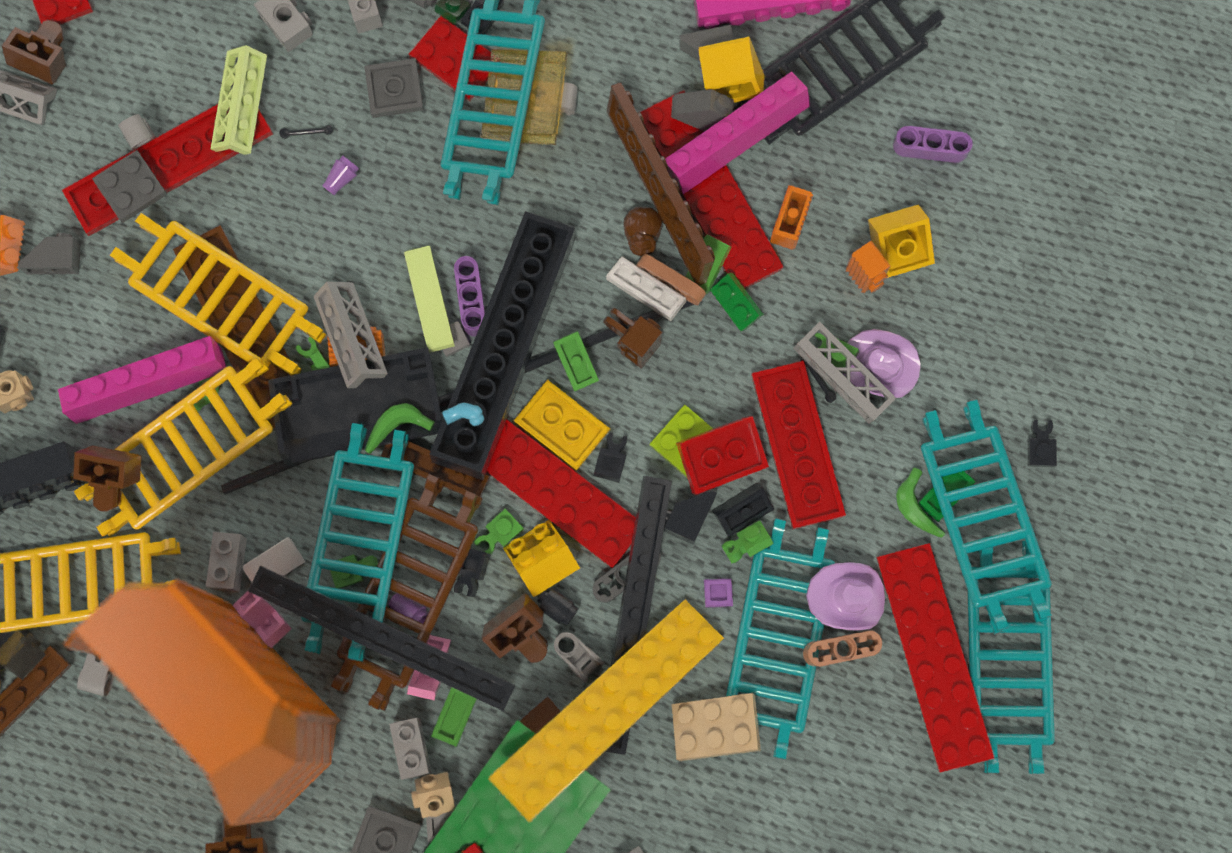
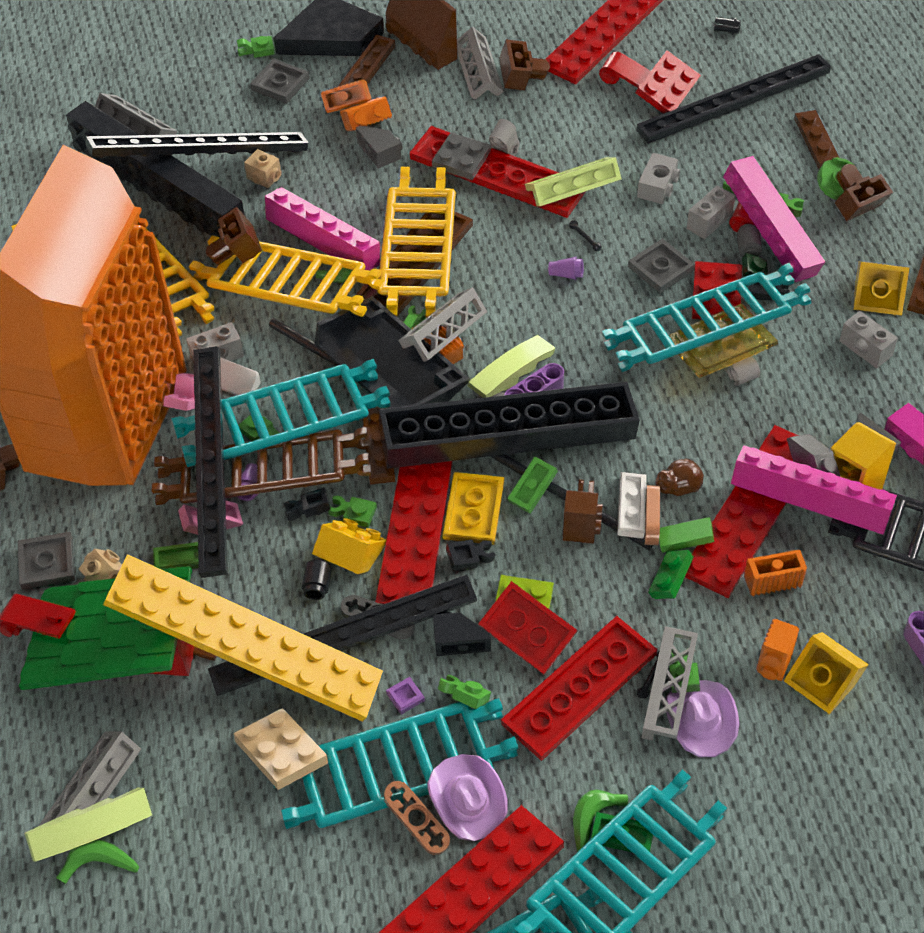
camera: 60 degrees right, 25 degrees down
(394, 417) = (395, 386): bright green piece -> none
(410, 748) = (134, 534): light grey brick -> none
(464, 410) = (428, 410): medium azure arm -> none
(517, 630) = (276, 554): reddish brown brick -> none
(578, 657) = (284, 613): light grey piece -> none
(659, 185) = (723, 459): reddish brown plate -> none
(743, 509) = (492, 677): black slope -> none
(1041, 449) = (726, 900): black plate -> none

